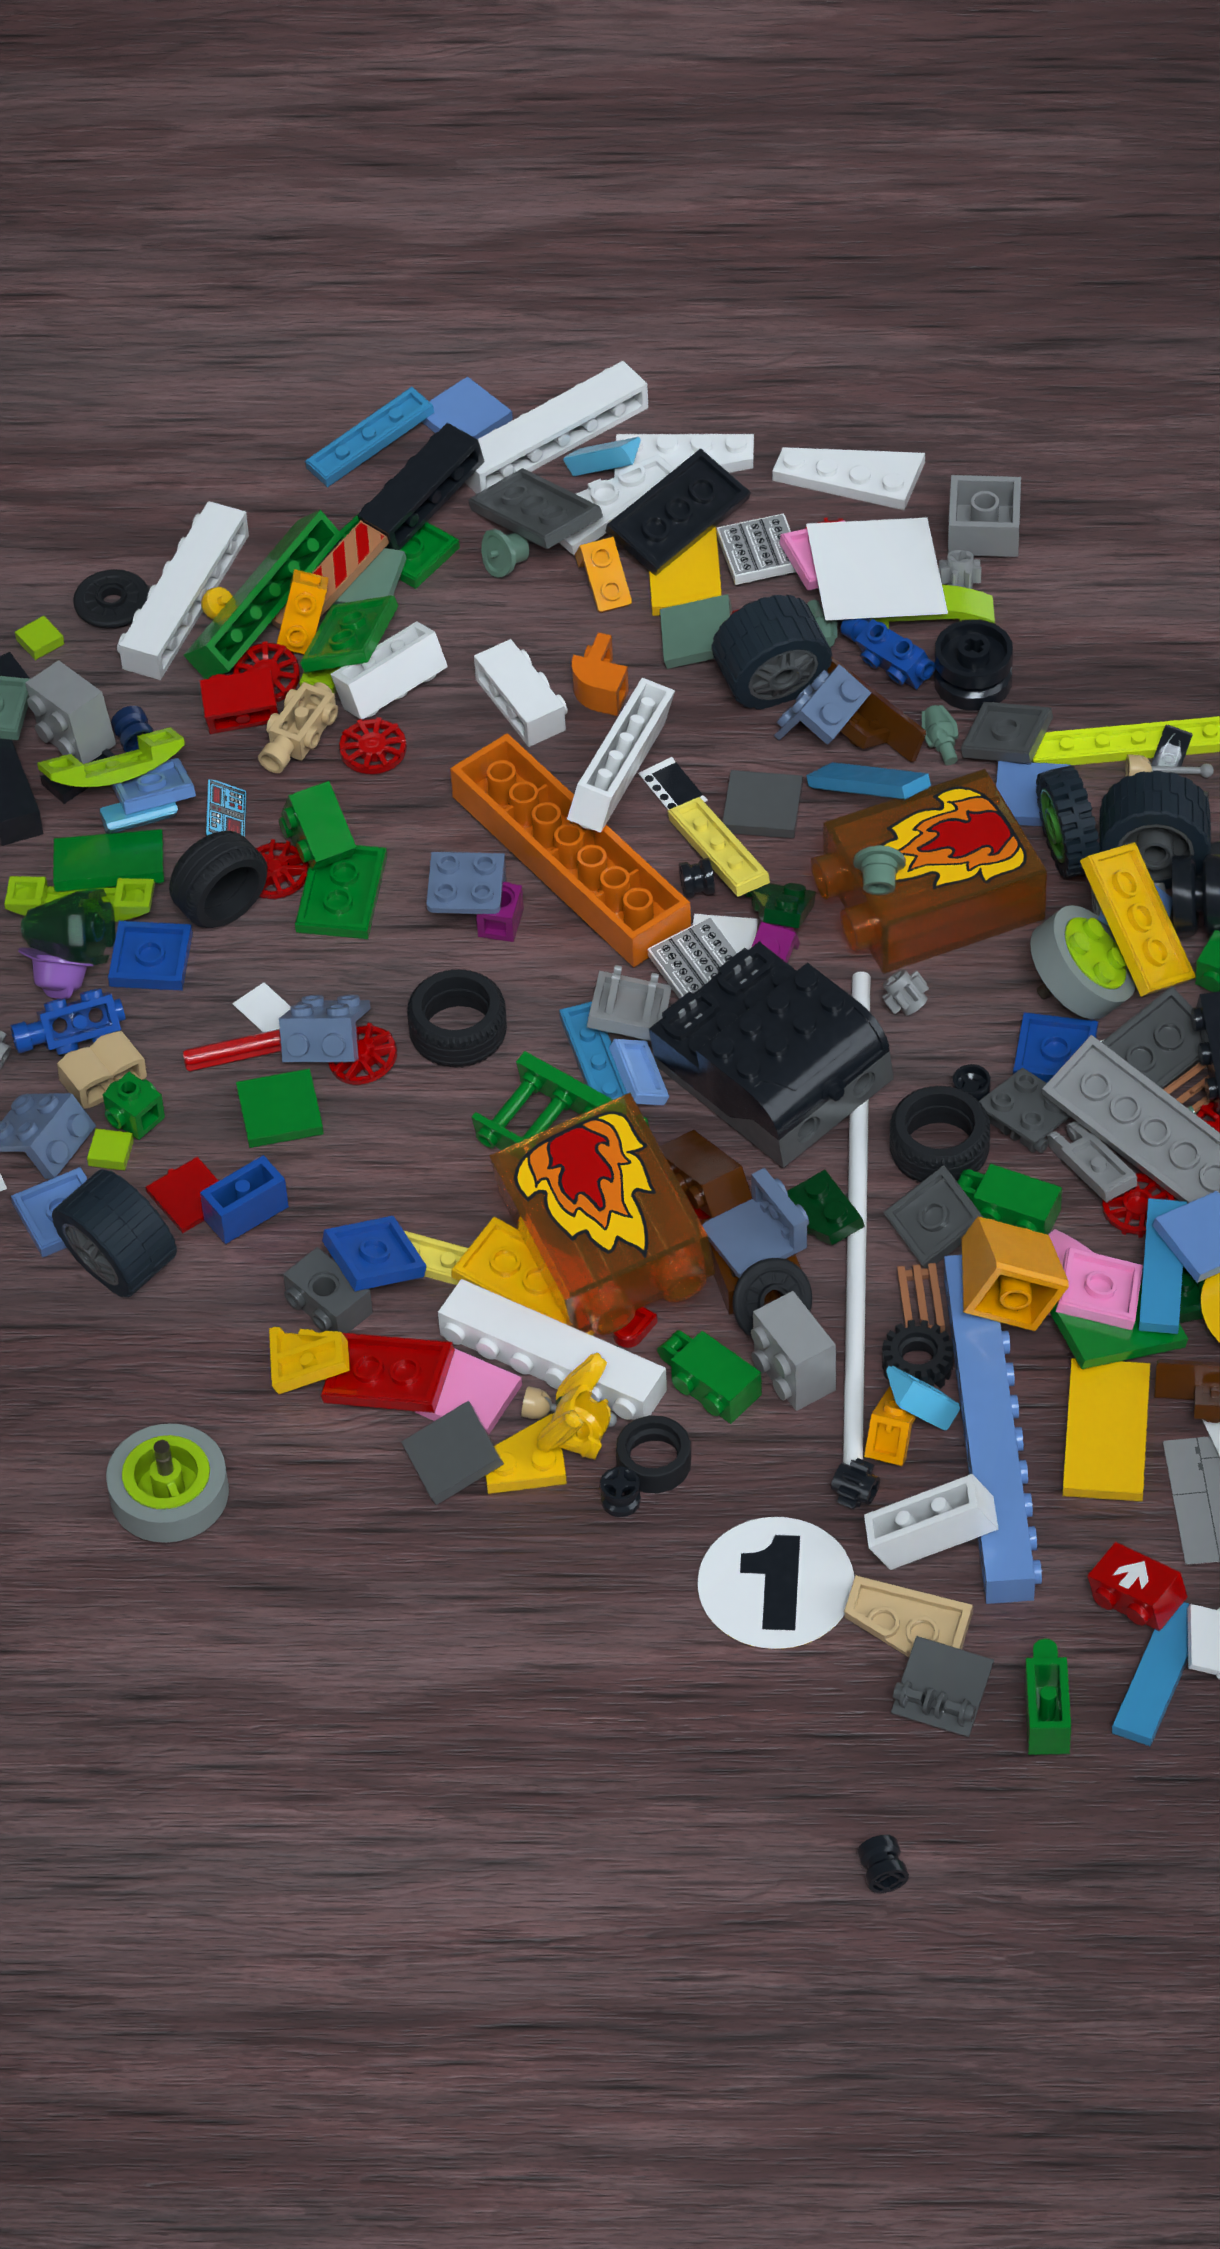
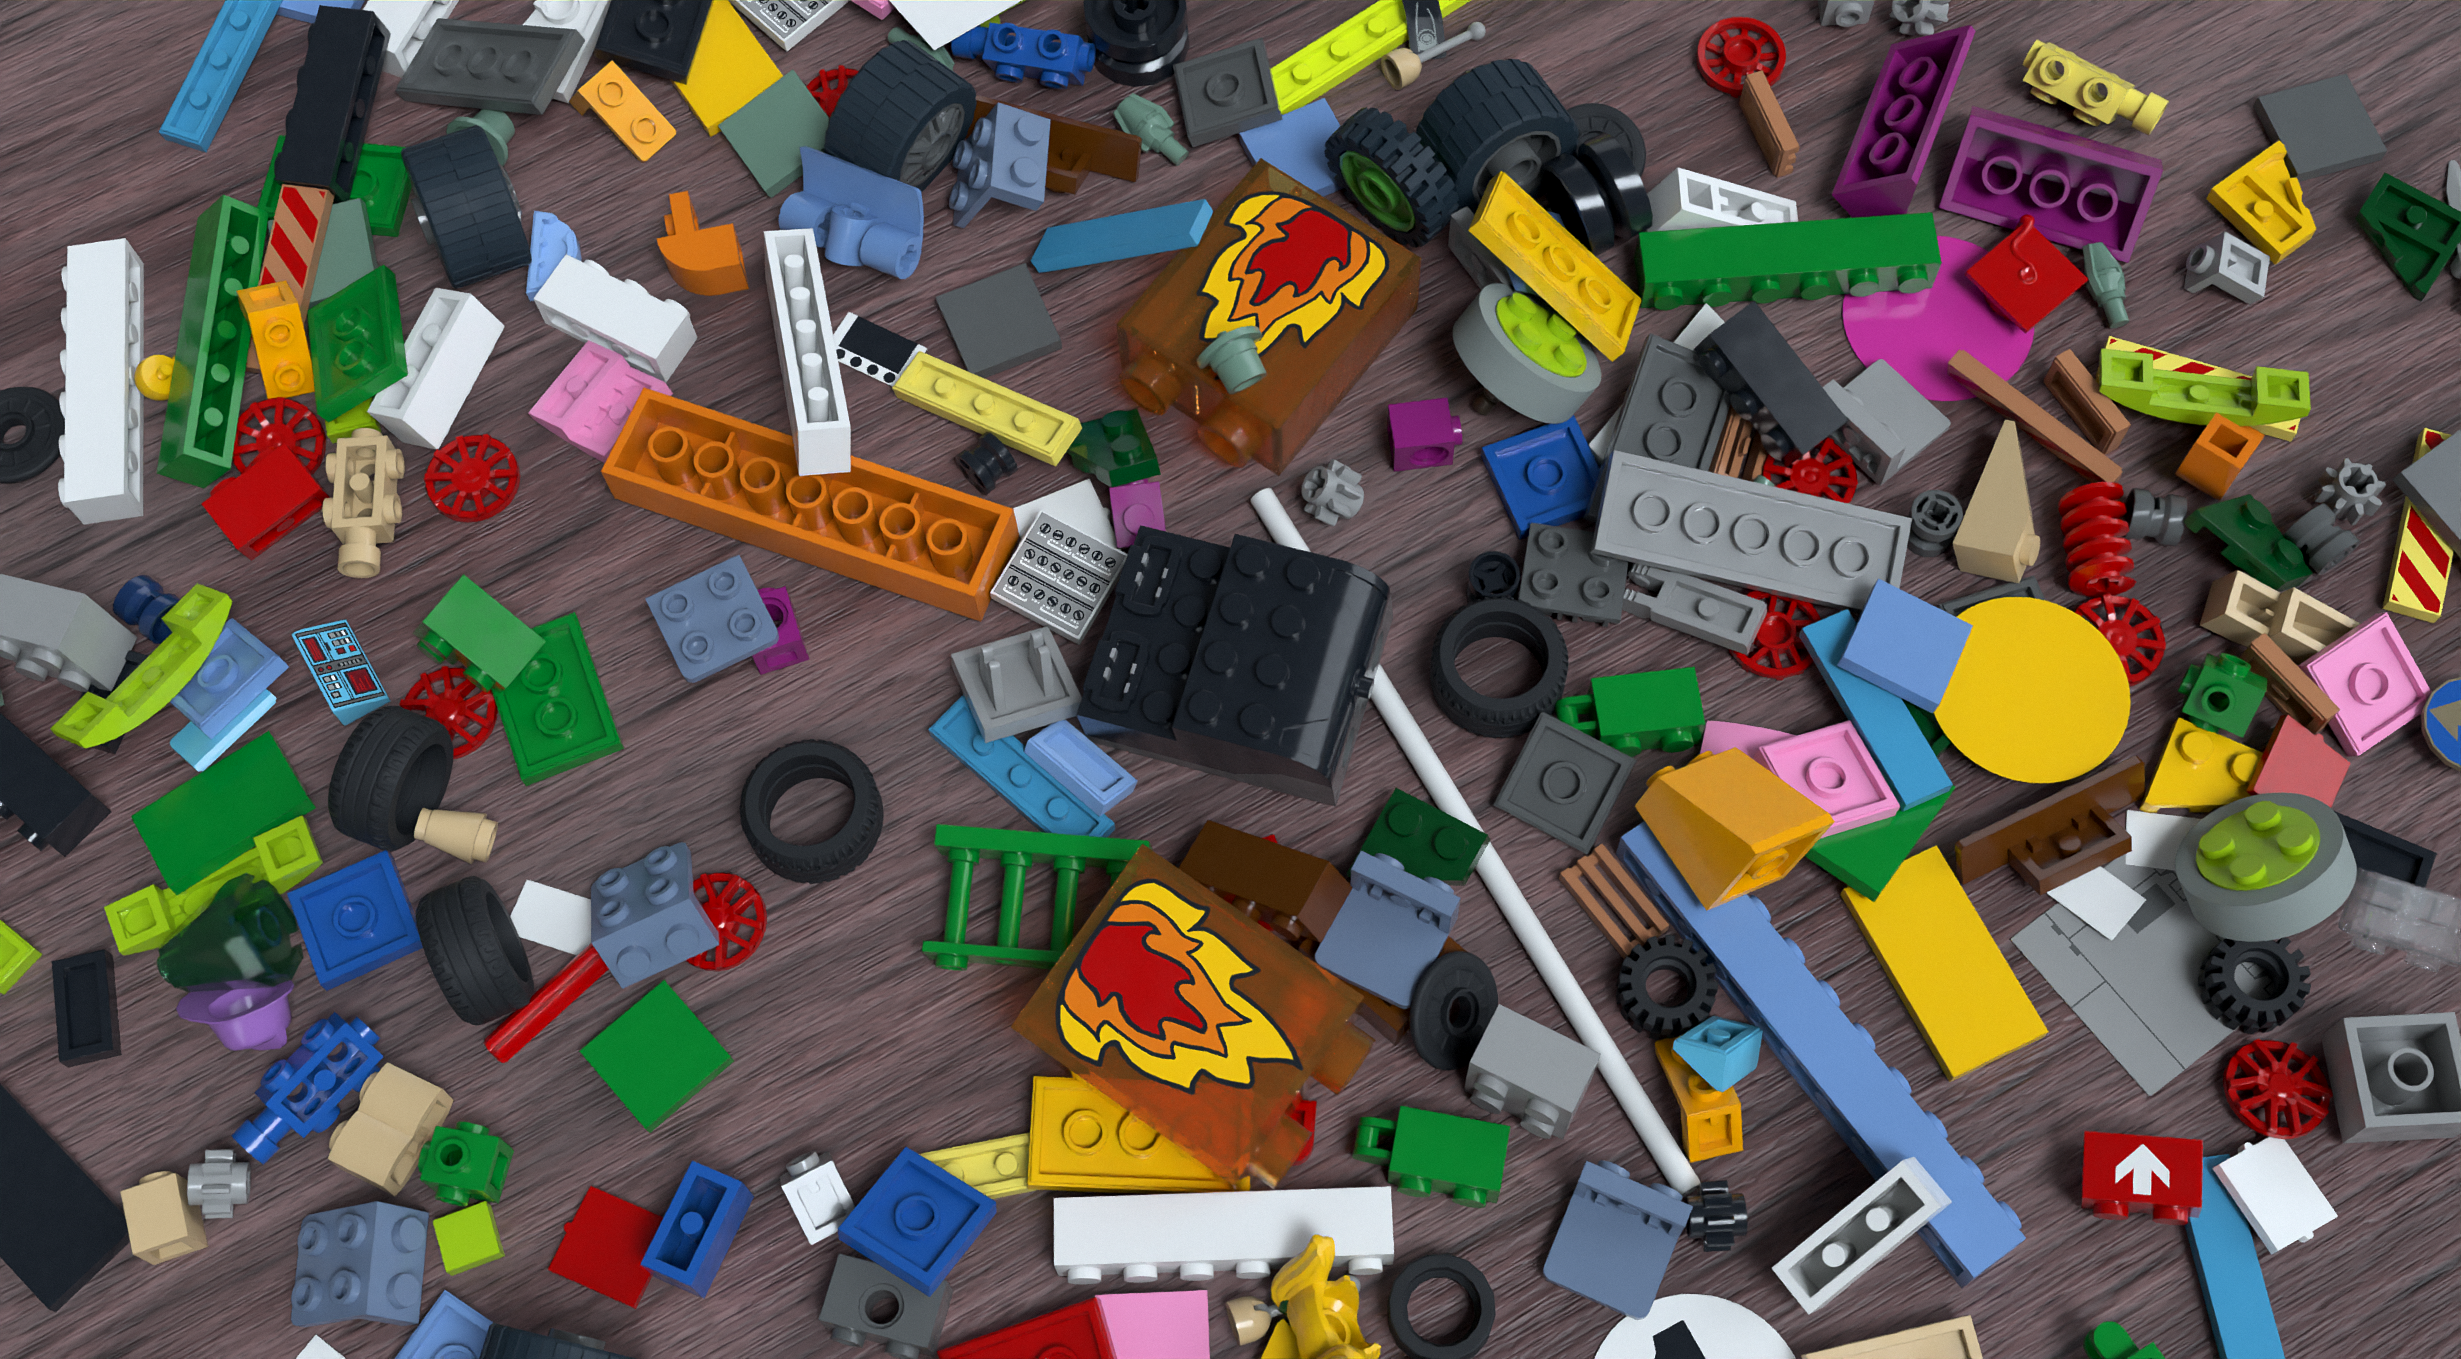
camera: 30 degrees left, 15 degrees up
(209, 991) = (474, 950): none -> black tyre
(240, 935) = (461, 834): none -> tan cone
(323, 1213) = (816, 1194): none -> bracket
(465, 582) = (466, 206): none -> black wheel
(473, 730) = (593, 399): none -> bright pink slope
(508, 628) = (549, 245): none -> light blue tile
(710, 697) = (857, 214): none -> medium blue panel
(788, 1467) = (1616, 1239): none -> sand blue bracket
(988, 986) = (1422, 434): none -> magenta brick

